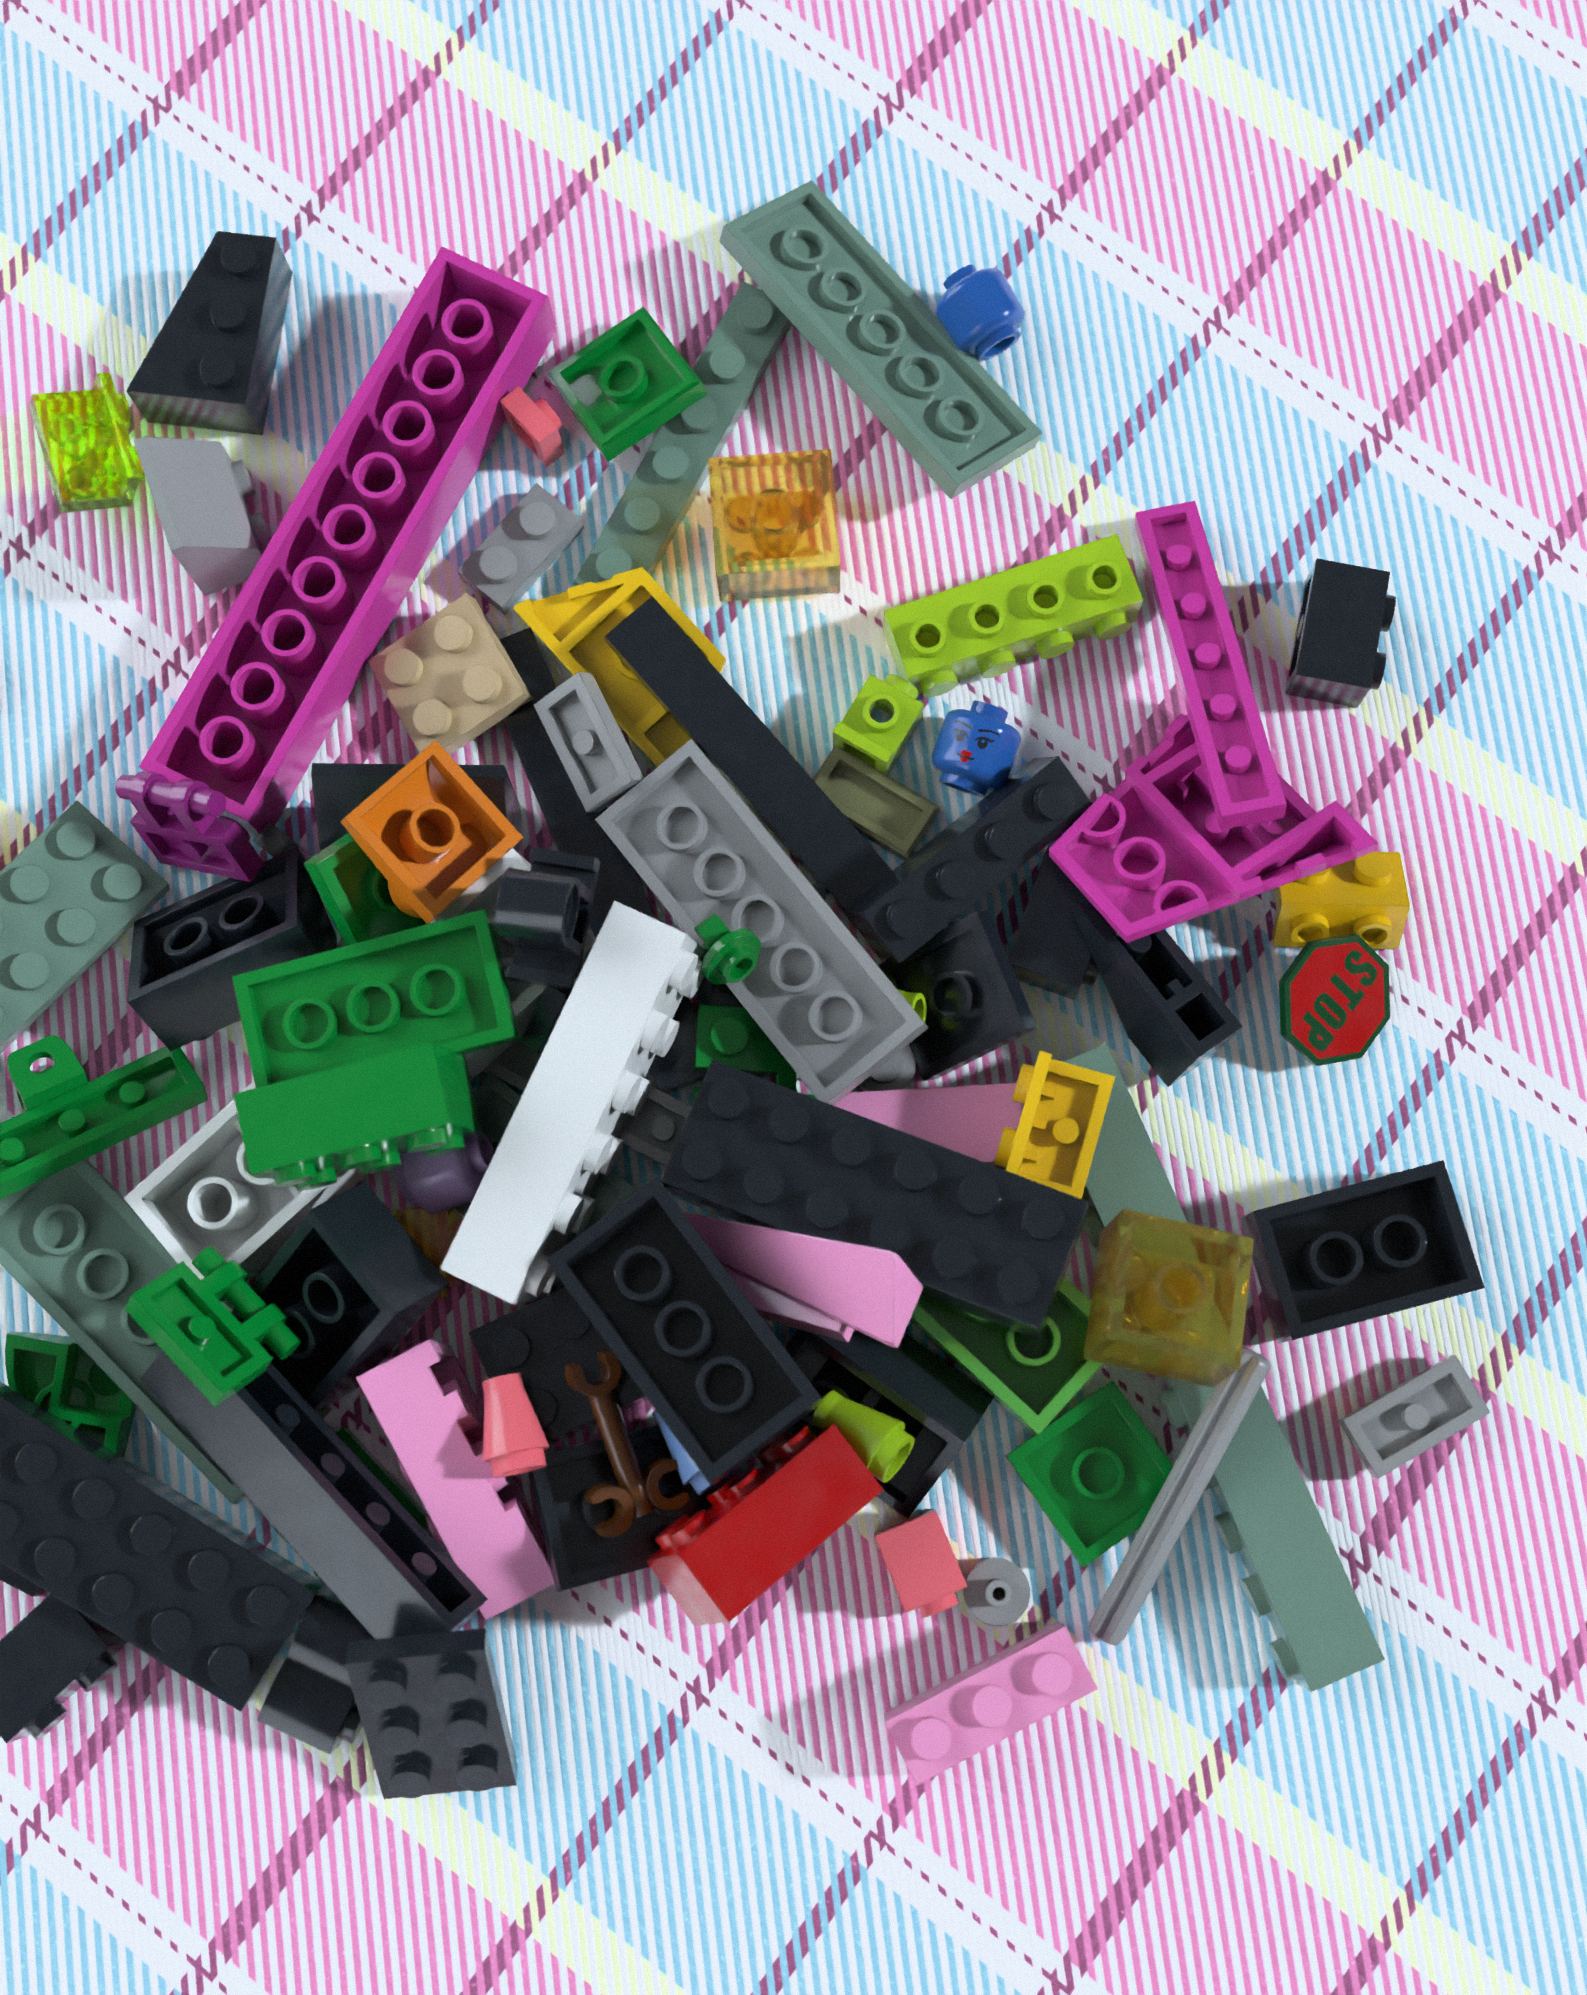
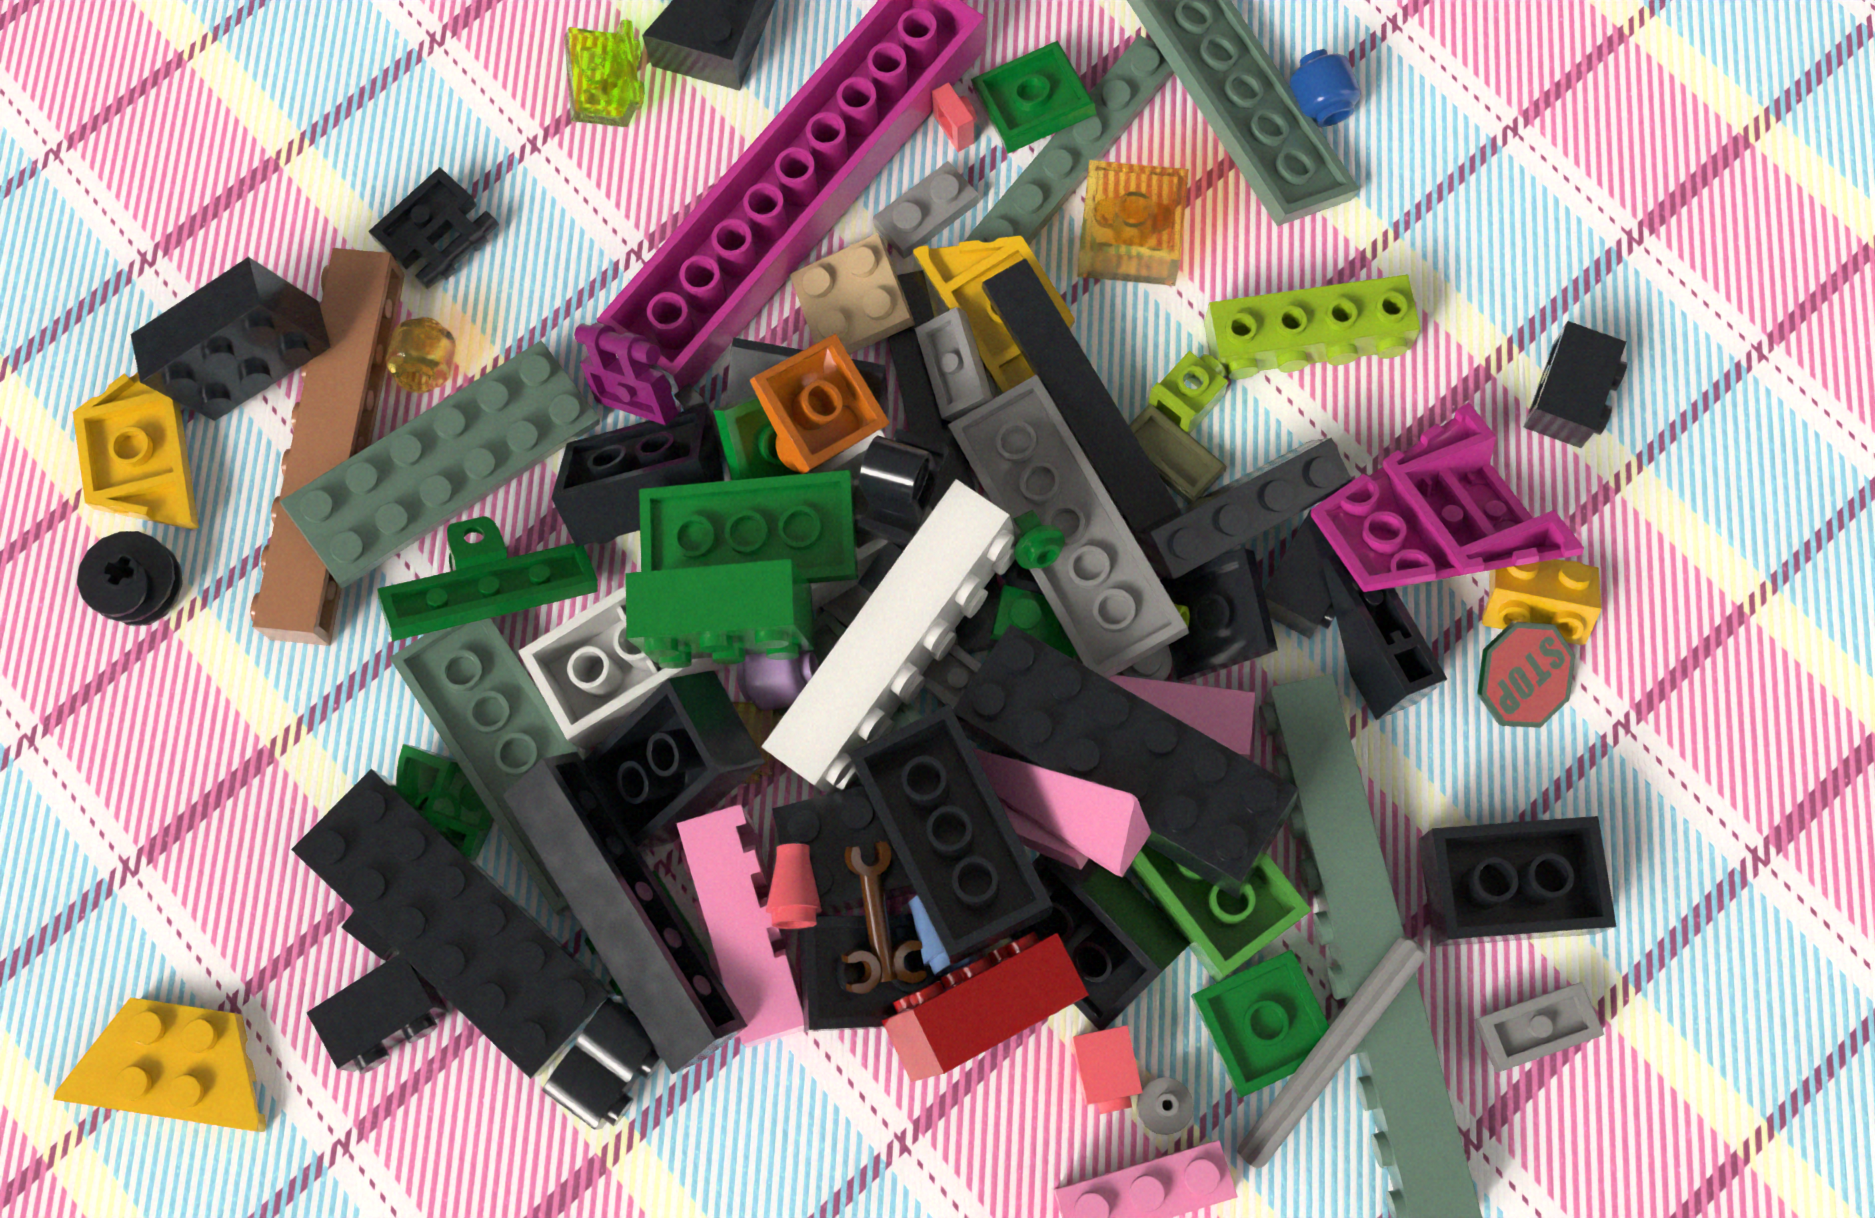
camera: 10 degrees right, 5 degrees down
(202, 1334) = (561, 764): green plate -> none
(204, 509) = (685, 135): light grey slope -> none
(432, 1713) = (685, 1110): black plate -> none
(871, 1434) = (1088, 952): lime cone -> none
(975, 749) = (1264, 424): blue head -> none
(1057, 1124) = (1283, 724): yellow bracket -> none
(1169, 1298) = (1352, 883): clear yellow brick -> none
(1209, 667) = (1466, 390): dark pink plate -> none

